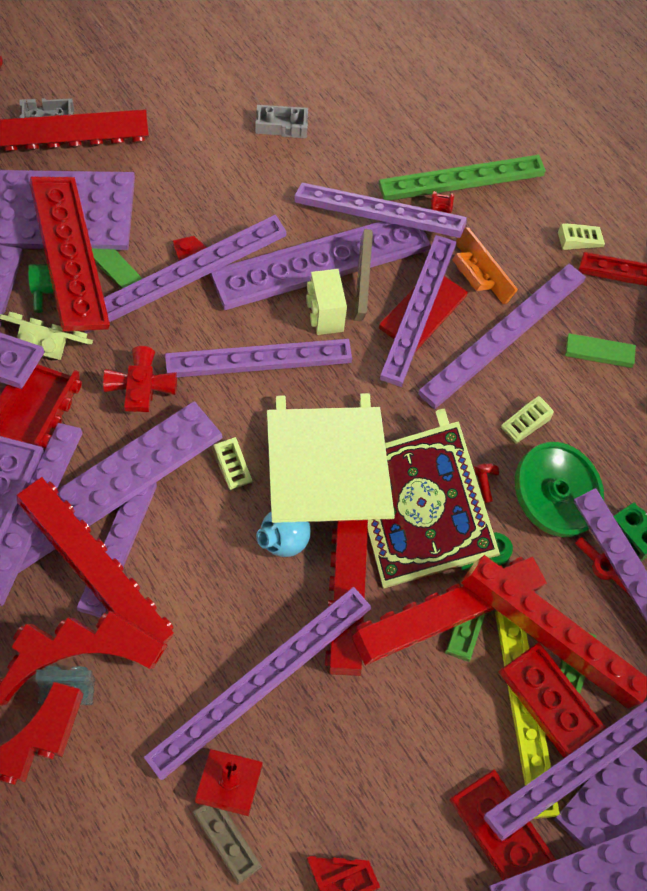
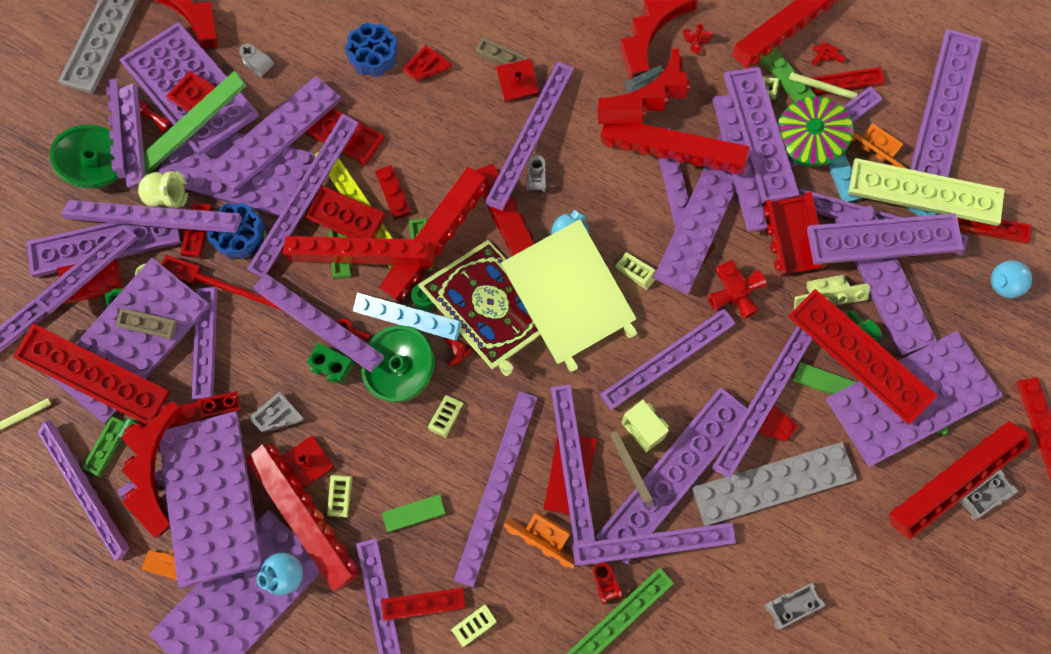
camera: 160 degrees right, 10 degrees up
(226, 209) = (773, 484): none -> light grey plate
(281, 628) = (536, 177): none -> light grey piece
(473, 711) = (392, 192): none -> red plate
(528, 532) = (407, 316): none -> plate

